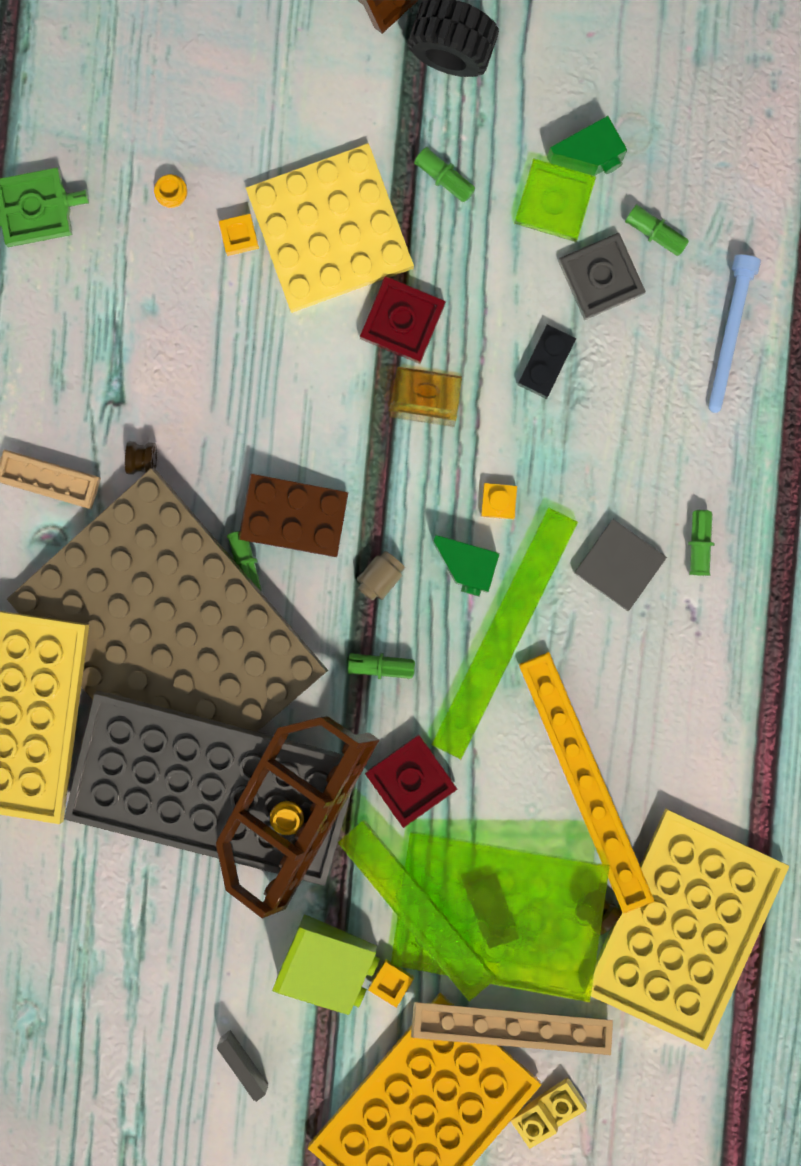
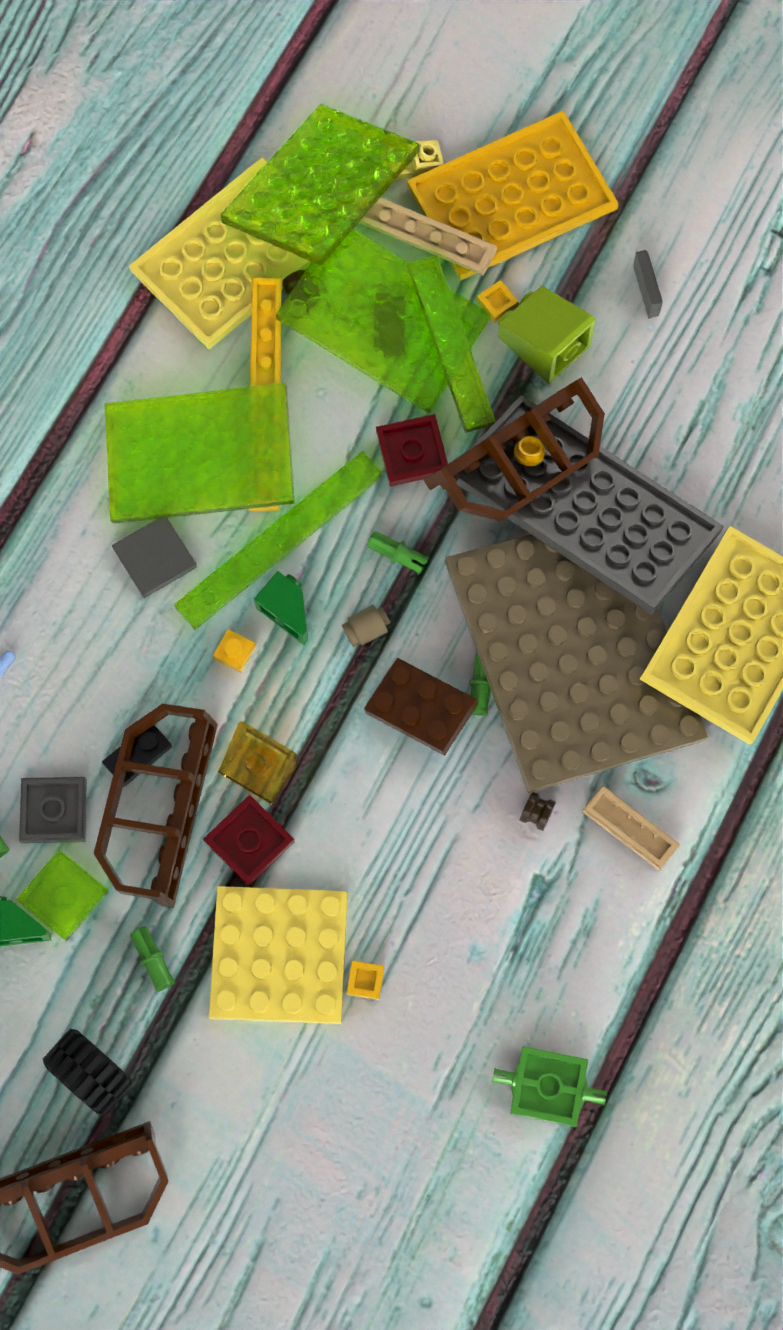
camera: 160 degrees left, 15 degrees down
(170, 191) = (412, 1050): yellow plate -> none
(475, 308) = (186, 798): none -> reddish brown plate
(622, 686) = (199, 453): none -> clear neon green plate
(628, 1037) = (320, 184): none -> clear neon green plate
(701, 543) = (77, 546): bright green axle -> none

